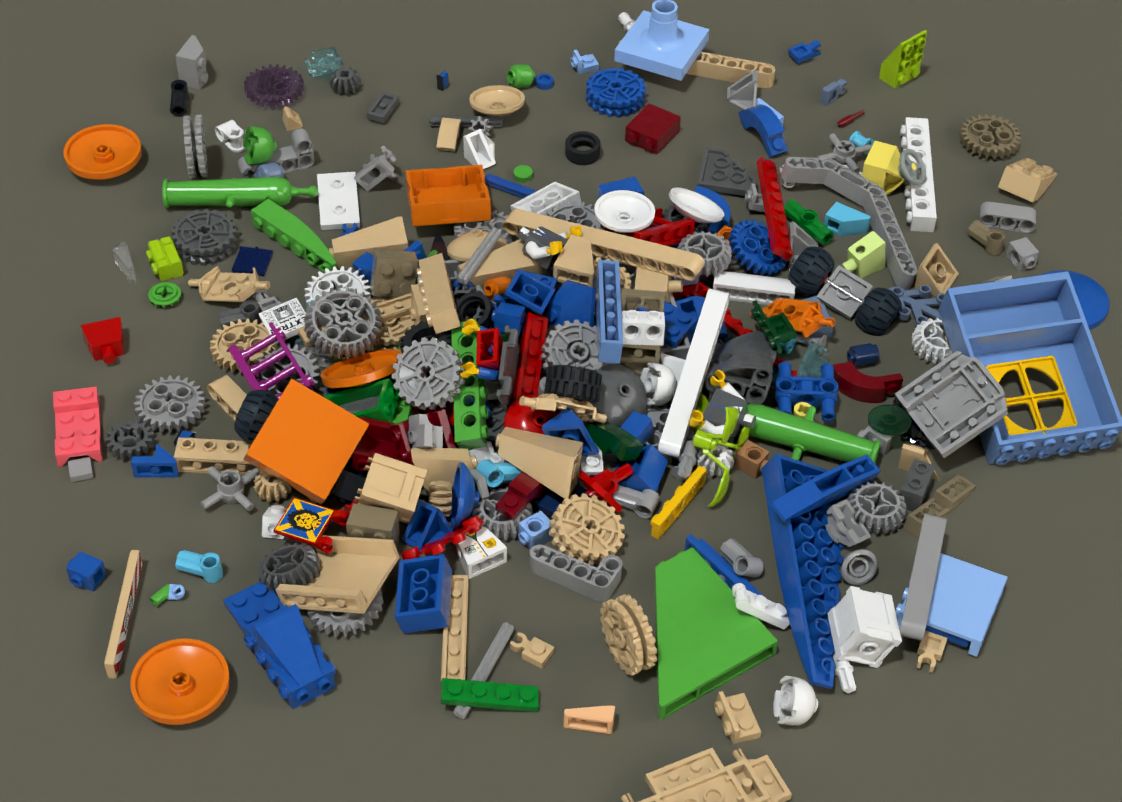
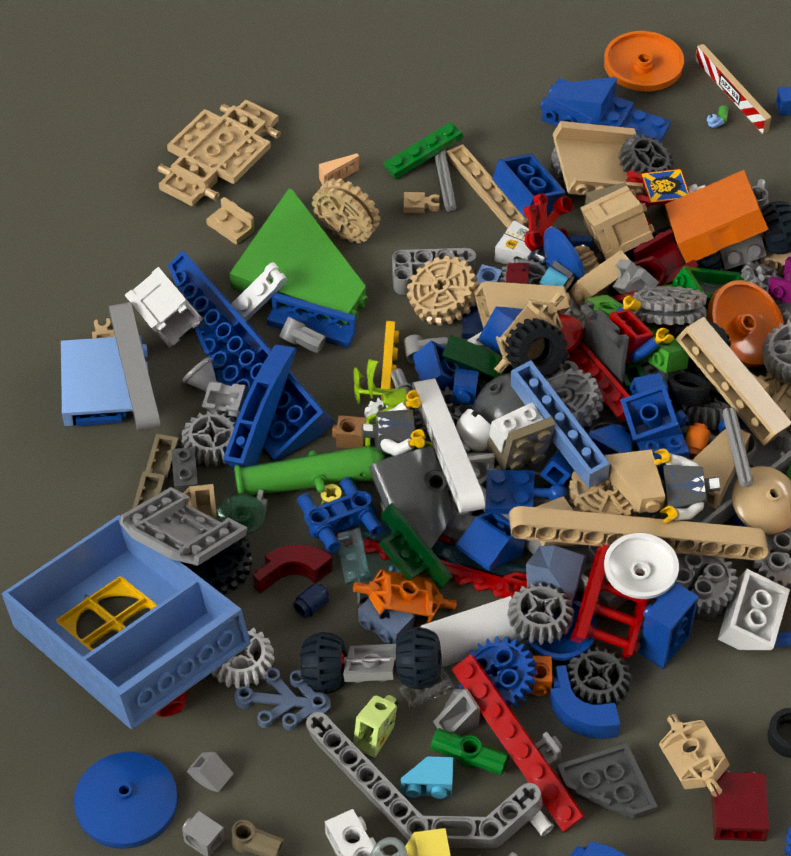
camera: 150 degrees right, 5 degrees up
(202, 565) = (709, 141): medium azure piece -> none
(605, 484) = (457, 319): red piece -> none
(653, 164) = (698, 767): none -> tan plate
(695, 206) = (572, 660): white dish -> none
(794, 701) = (189, 240): white cylinder -> none
(936, 271) = (287, 751): tan slope -> none

